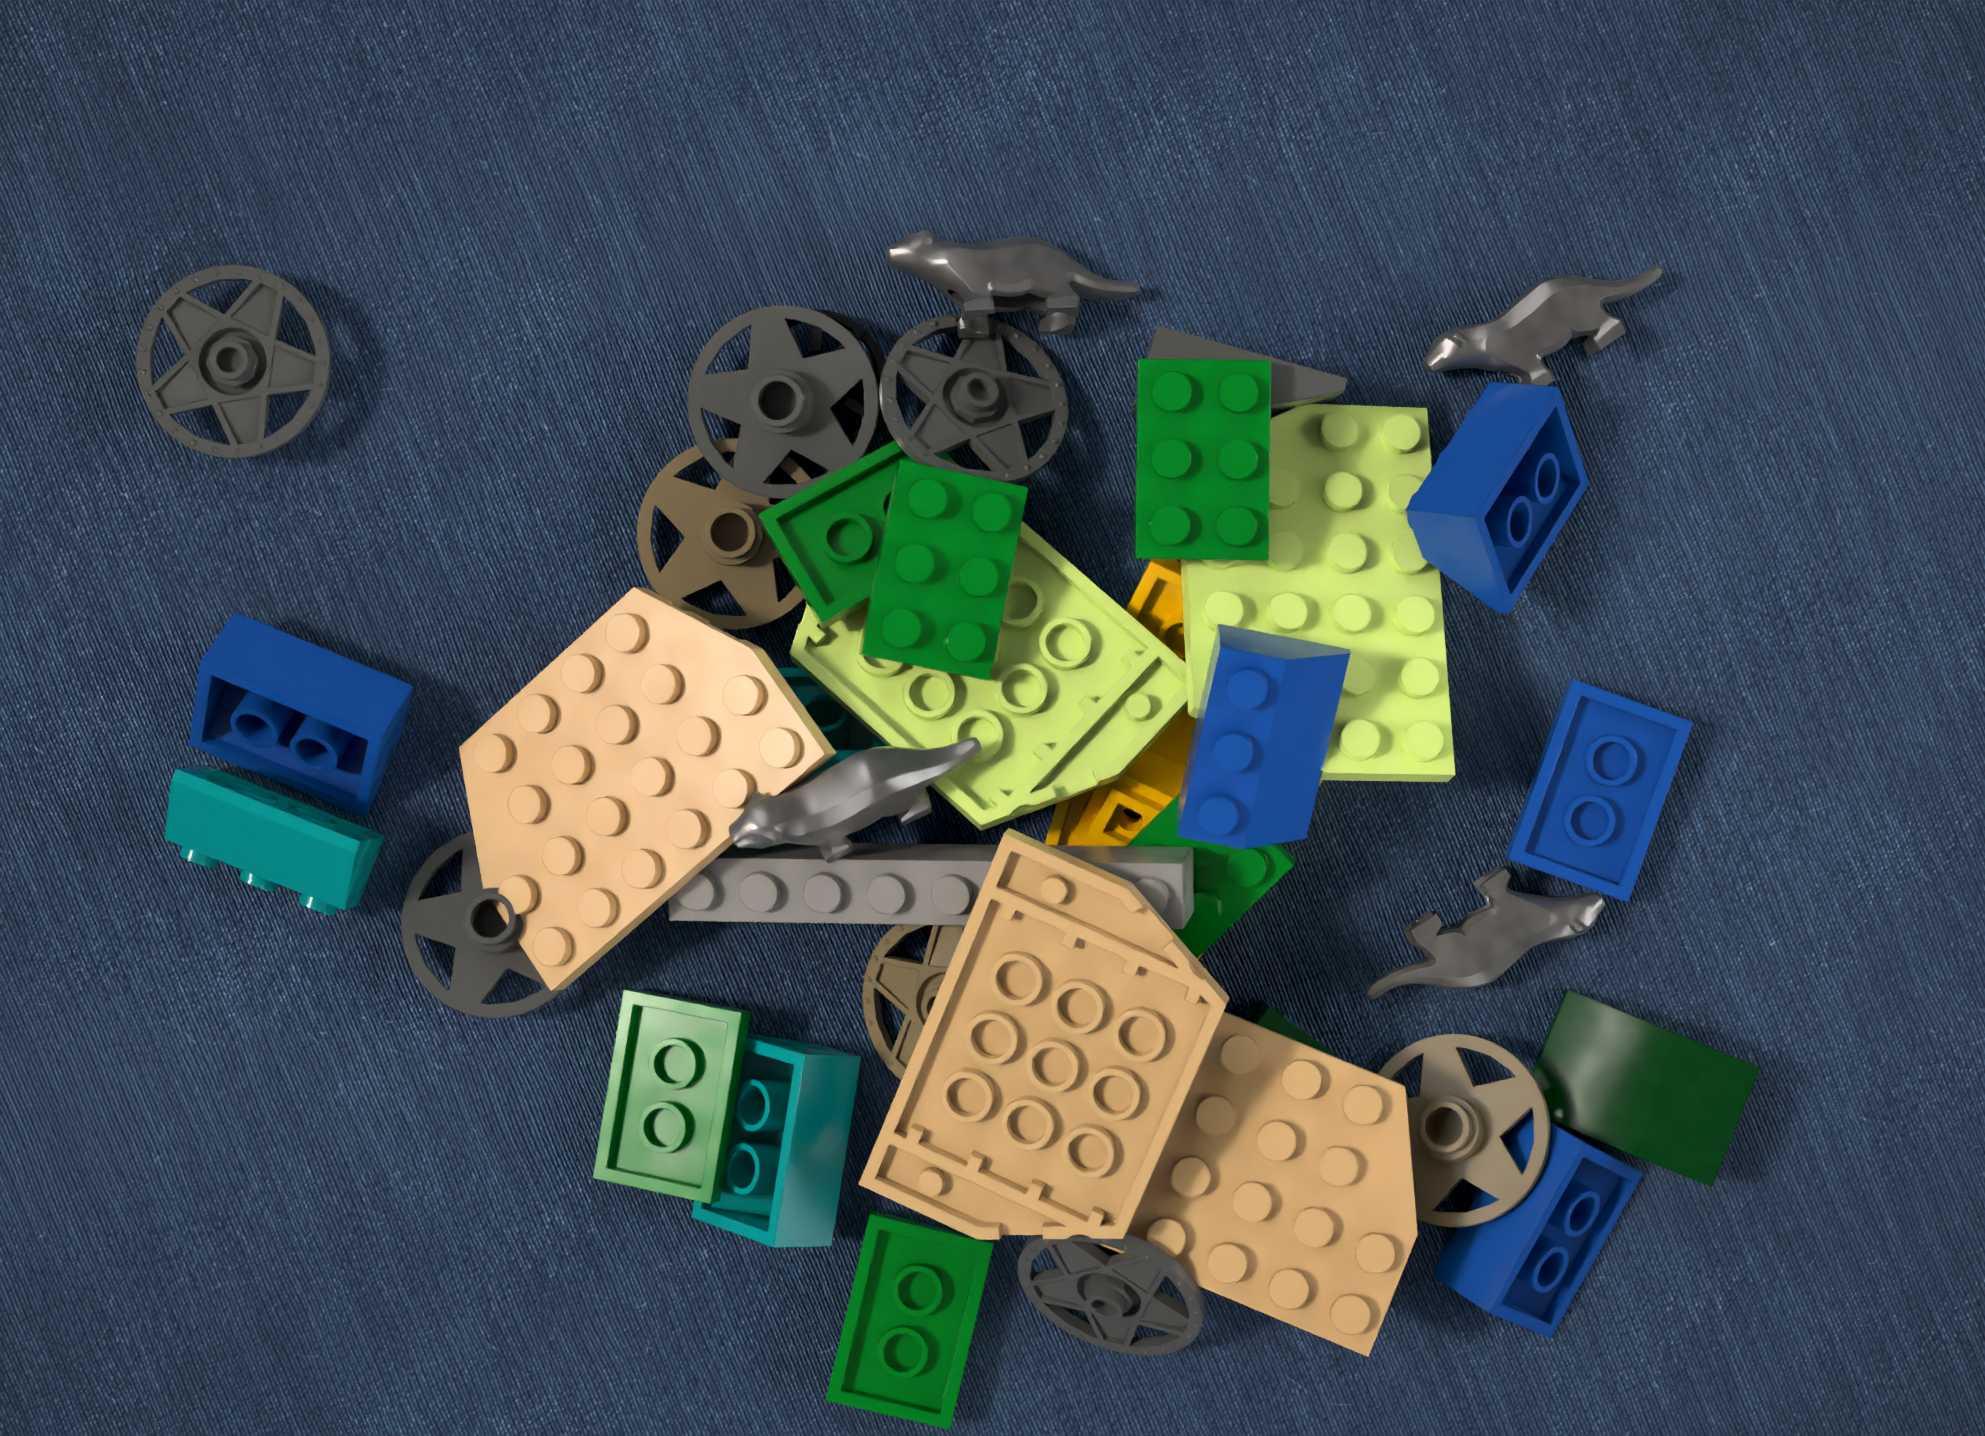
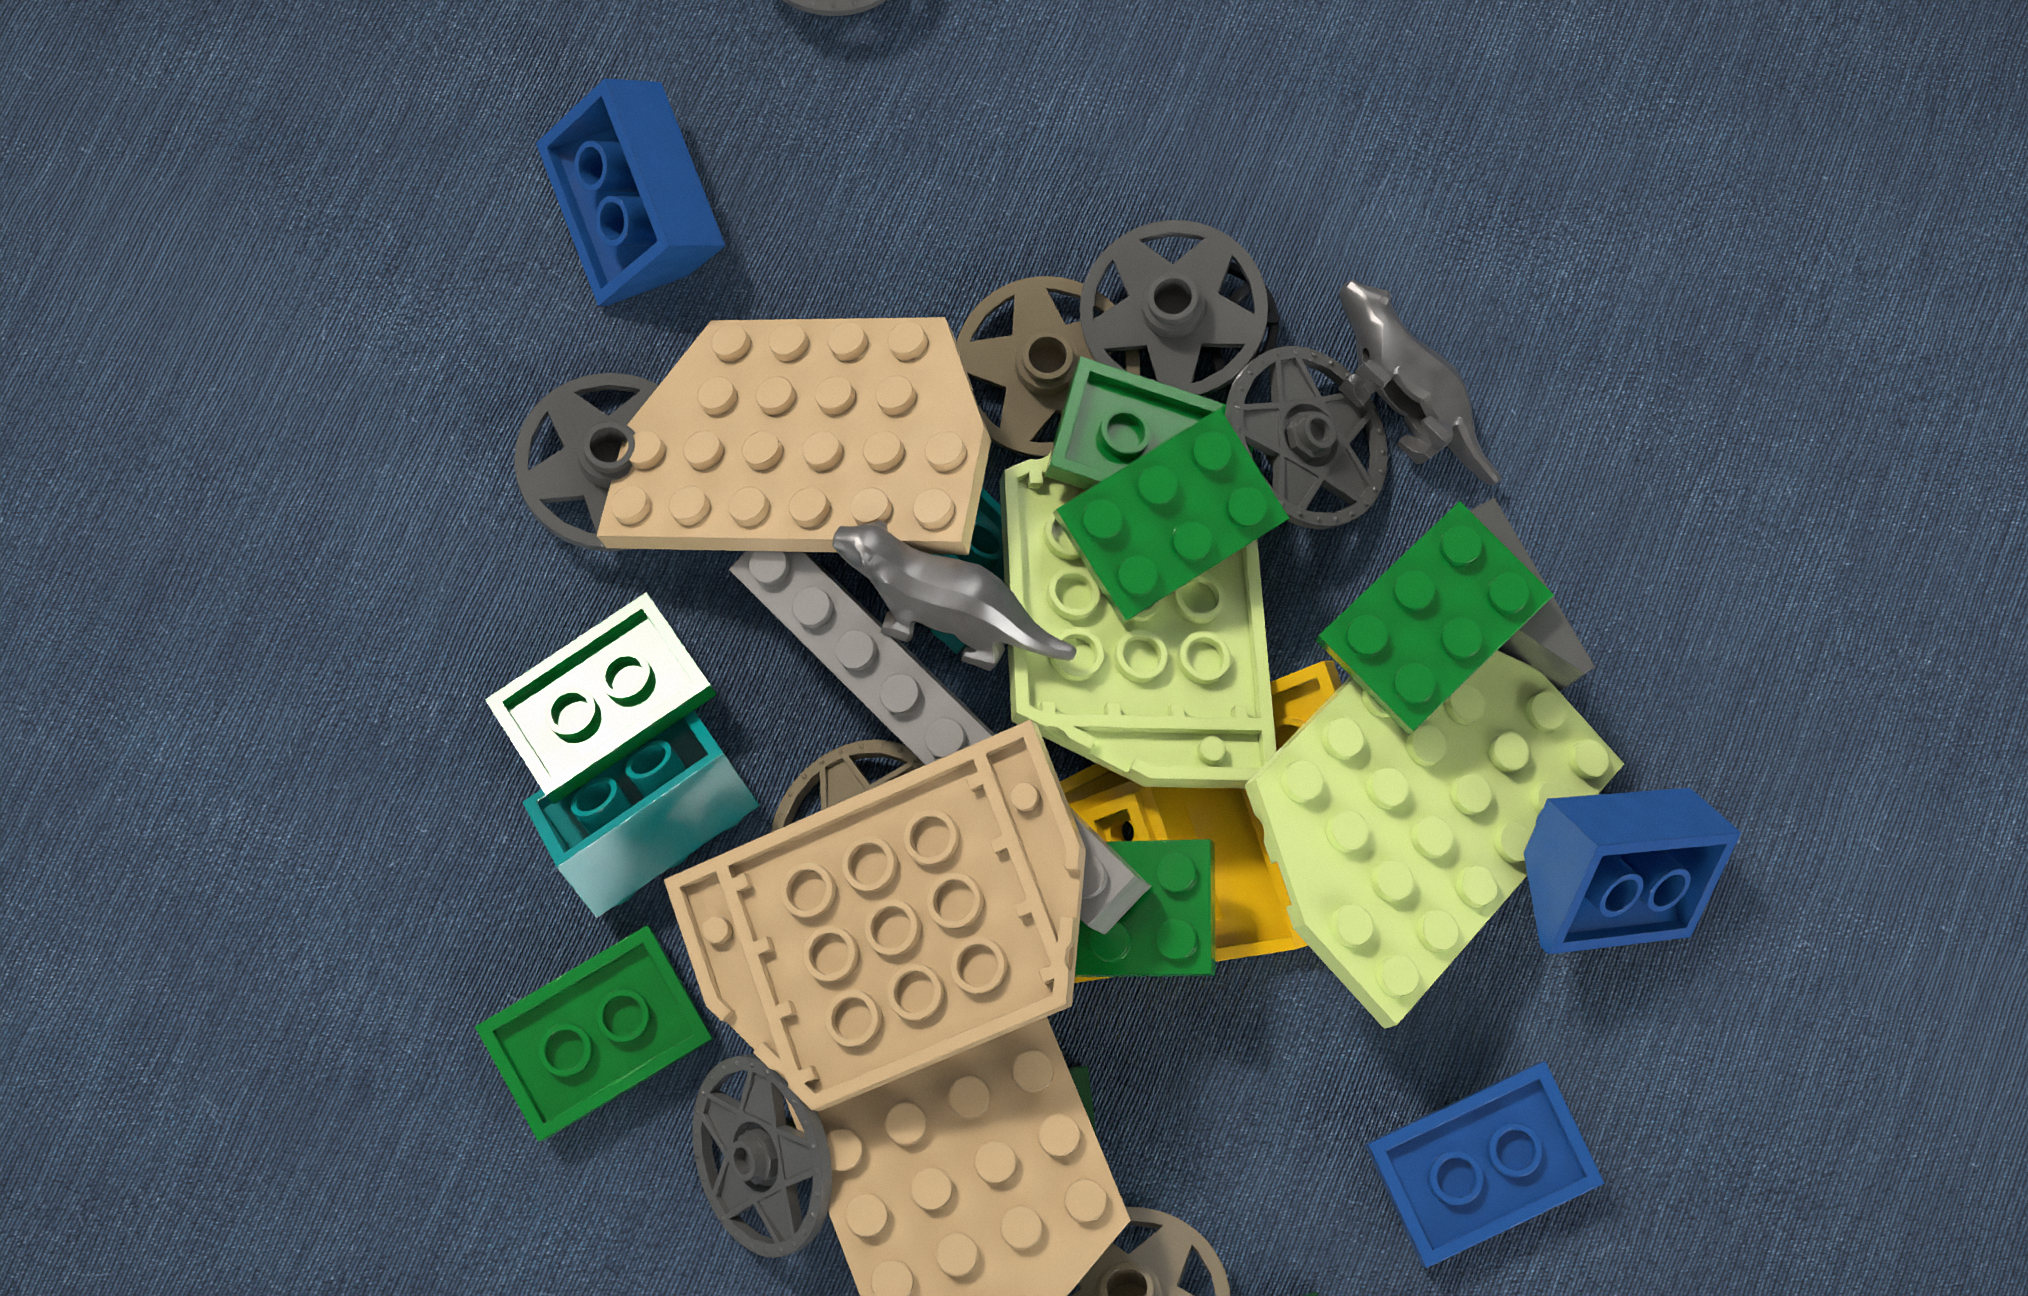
camera: 40 degrees right, 10 degrees down
(270, 838) = (520, 248): teal slope -> none
(1260, 739) = (1282, 847): blue slope -> none
(1488, 937) = (1297, 1190): flat silver animal -> none
(1538, 326) = (1763, 787): flat silver animal -> none

